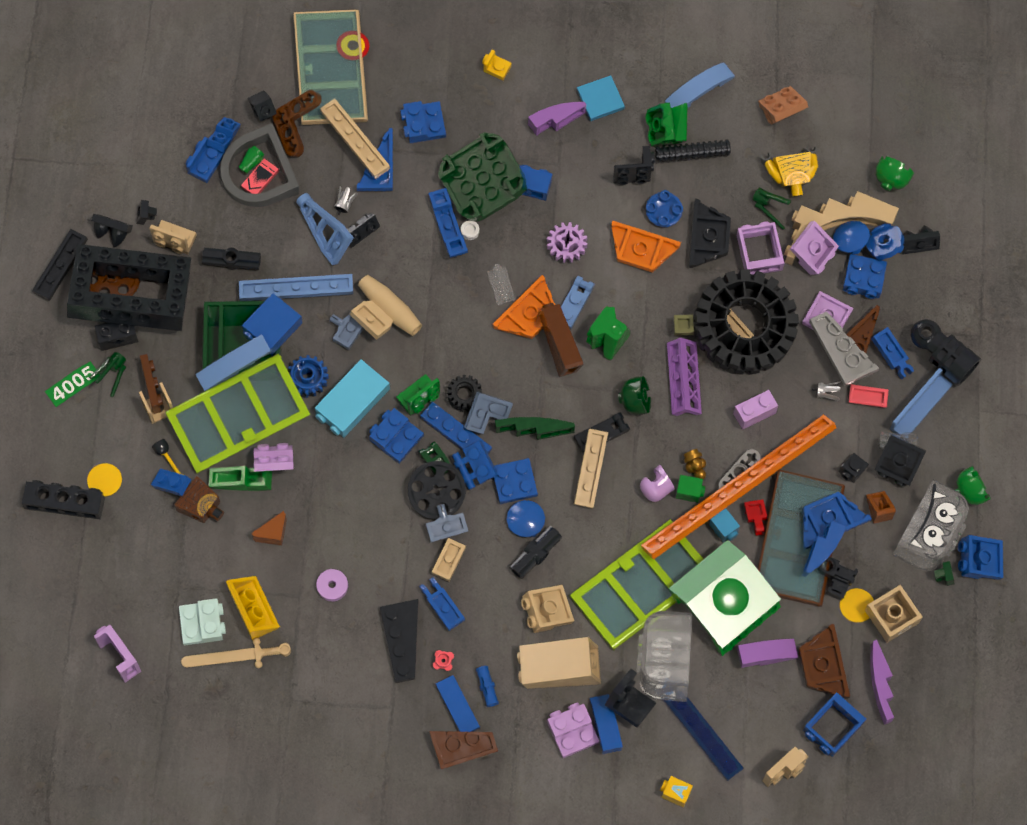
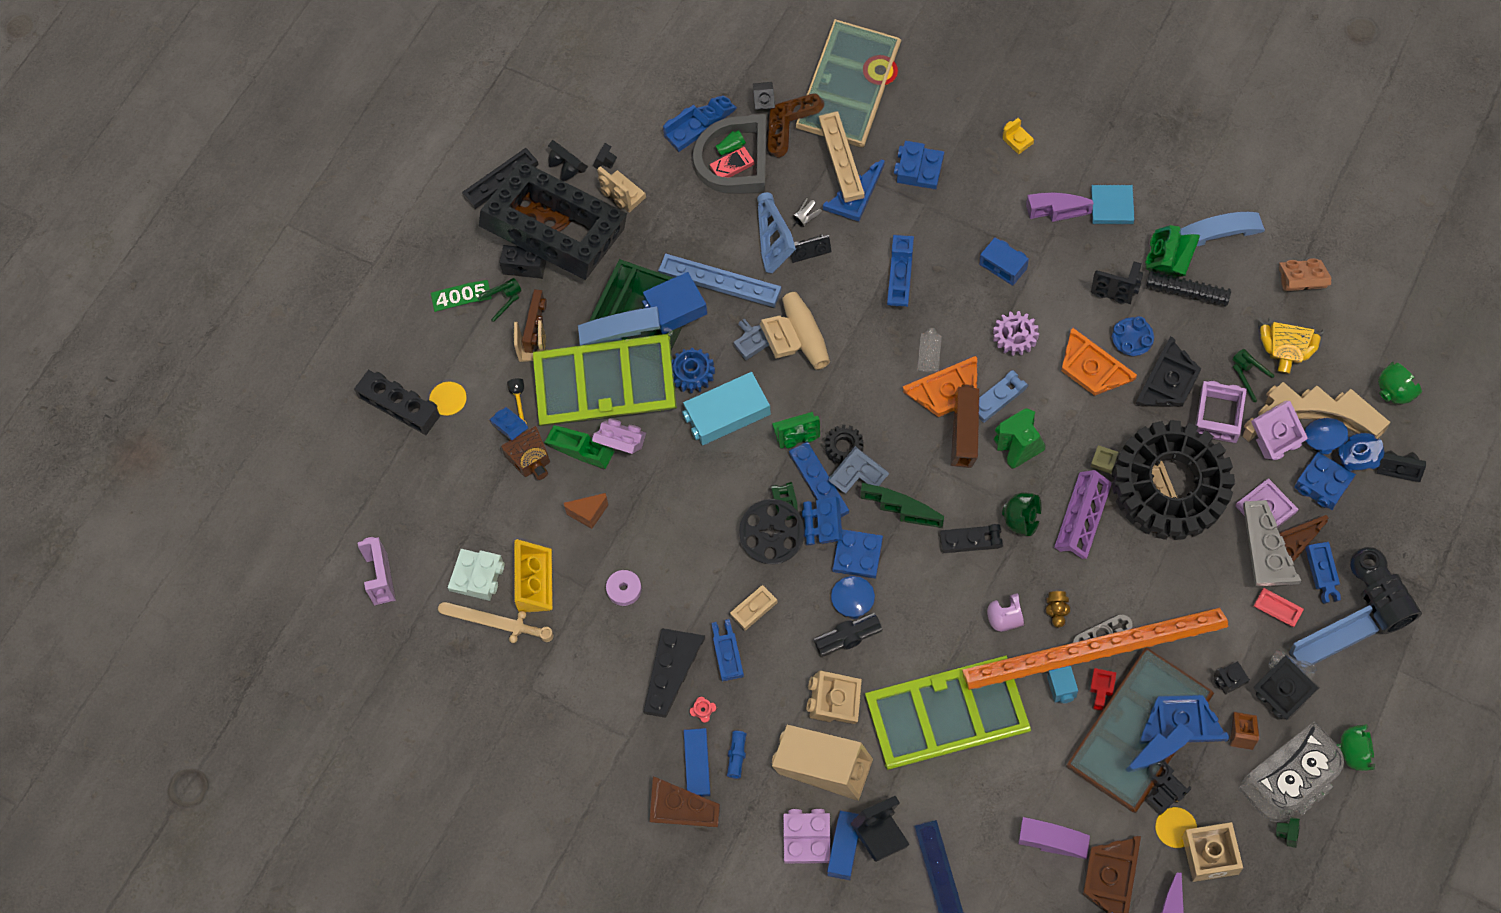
camera: 30 degrees right, 5 degrees down
(243, 259) = (658, 225): black piece -> none
(395, 435) = (755, 461): blue plate -> none
(446, 525) = (766, 571): sand blue plate -> none
(470, 230) = (920, 287): white tile -> none
(482, 177) = (954, 237): dark green plate -> none
(590, 468) = (942, 570): tan plate -> none
(665, 655) = (938, 796): clear brick -> none
(690, 489) = (1041, 631): green brick -> none
(726, 596) = (1032, 760): panel -> none
(755, 409) = (1146, 575): lavender brick -> none
(822, 388) = (1230, 581): flat silver piece -> none
(981, 557) = (1338, 829): blue plate -> none

